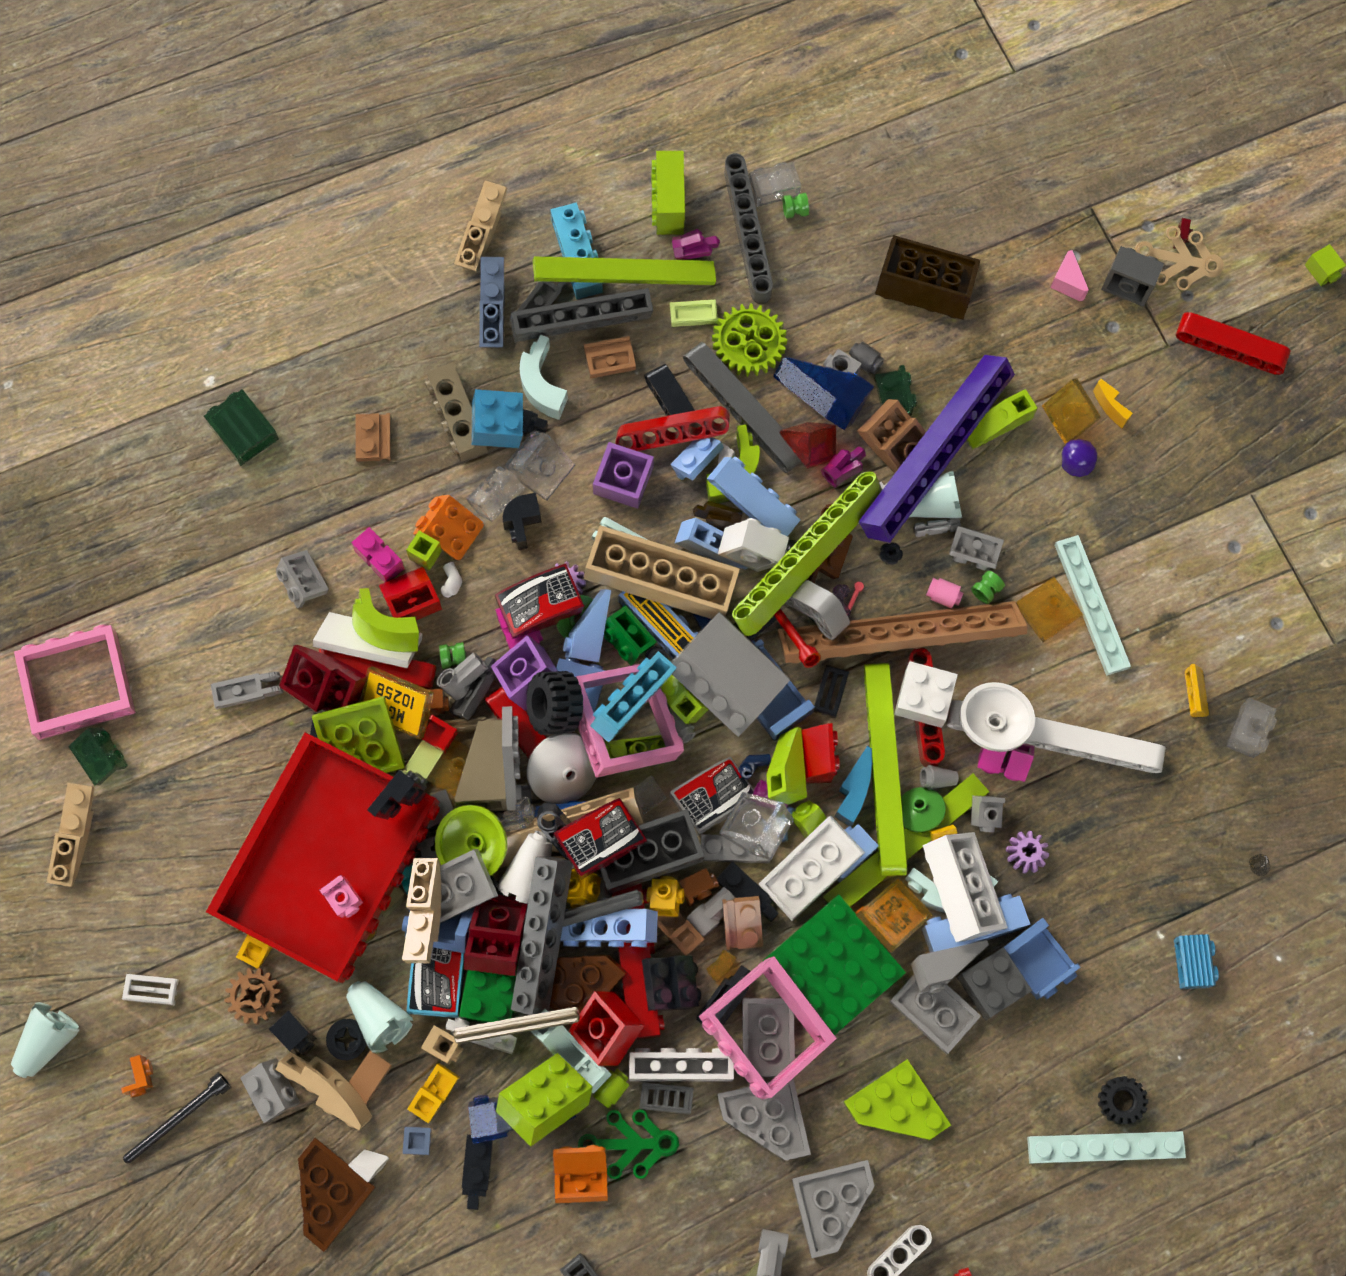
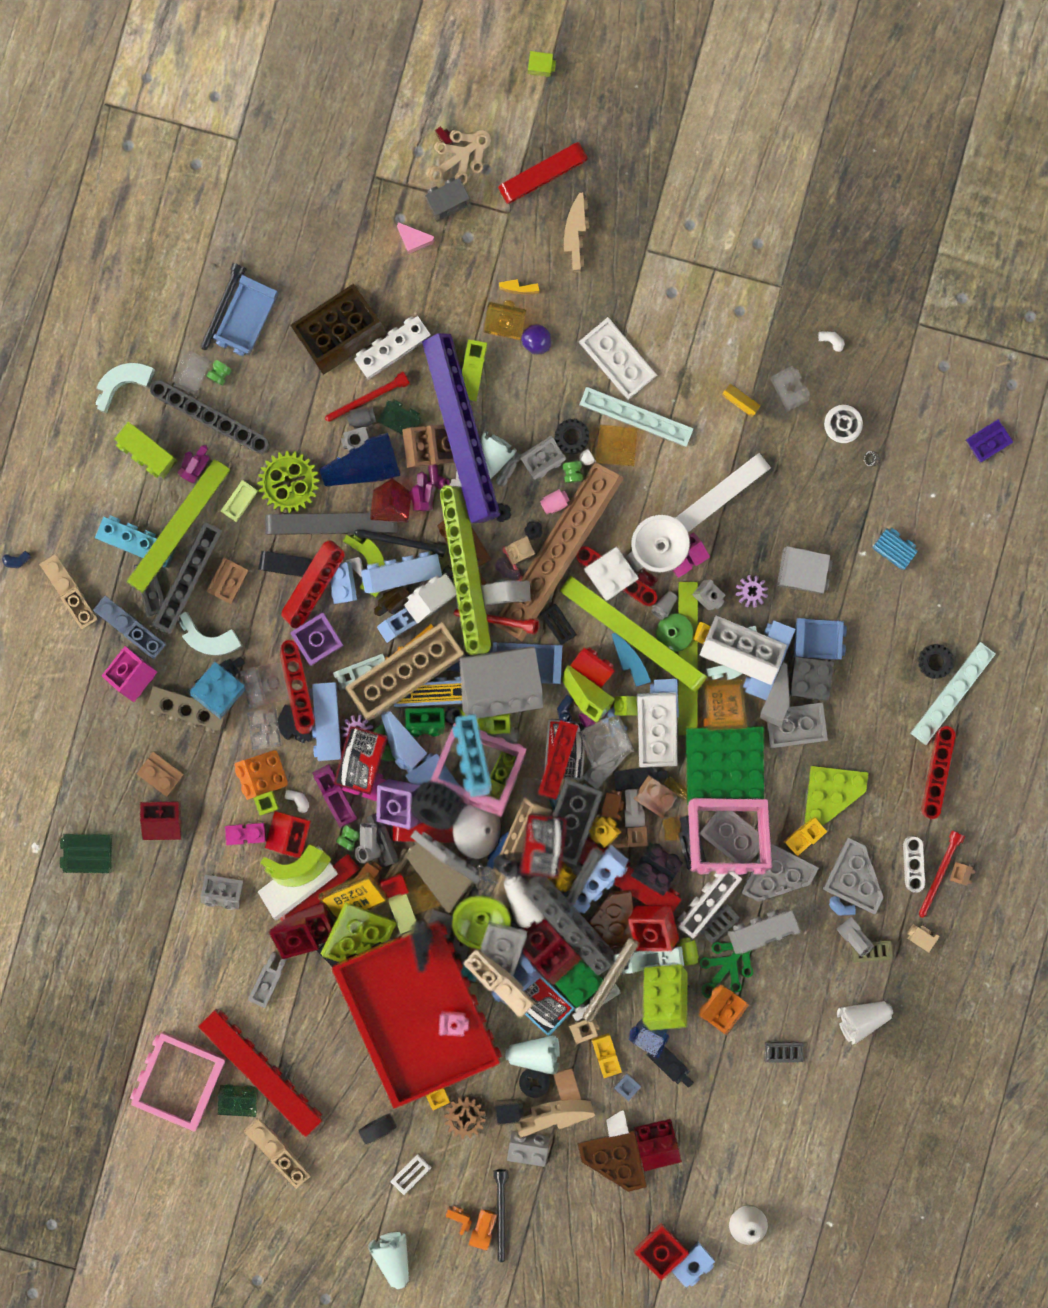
camera: 50 degrees left, 15 degrees up
(138, 1114) = (482, 1234): none -> orange piece
(144, 755) = (260, 1072): none -> red brick
(172, 913) = (377, 1129): none -> black tyre
(328, 467) = (160, 820): none -> dark red slope
(378, 1226) = (657, 1145): none -> dark red slope
(447, 338) = (129, 674): none -> dark pink slope
(470, 166) = (16, 562): none -> dark blue arm
(482, 611) = (334, 796): none -> magenta slope
(552, 544) = (326, 721): none -> light blue brick
(555, 496) = (296, 678): none -> red beam
(697, 1148) = (763, 930): none -> light grey wedge
(699, 790) = (558, 760): none -> red plate
(715, 126) = (119, 376): none -> light aqua arch
(769, 938) = (676, 788): none -> clear yellow axle
(786, 1215) = (839, 908): none -> medium blue arm
(806, 520) = (436, 548): none -> black piece
(831, 1113) = (805, 836): none -> yellow slope
(867, 191) = (245, 316): none -> medium blue panel
(870, 596) = (519, 550): none -> tan brick
(871, 463) = (435, 478): none -> magenta arm
(900, 154) = (236, 272): none -> black piece
(900, 601) = (538, 530): none -> black plate
(930, 366) = (400, 380): none -> red piece
(950, 739) = (647, 578): none -> dark red tile
(953, 334) = (392, 348): none -> white brick
(1012, 590) = (587, 458): none -> white hinge
(1025, 547) = (571, 424): none -> black tyre
(1027, 1197) = (944, 764): none -> red beam
(1094, 886) = (804, 570): none -> light grey slope
(1129, 546) = (617, 358): none -> white tile
(1209, 410) = (575, 225): none -> tan slope
(1269, 805) = (843, 423): none -> white cone
(1336, 731) = (834, 338): none -> white arm

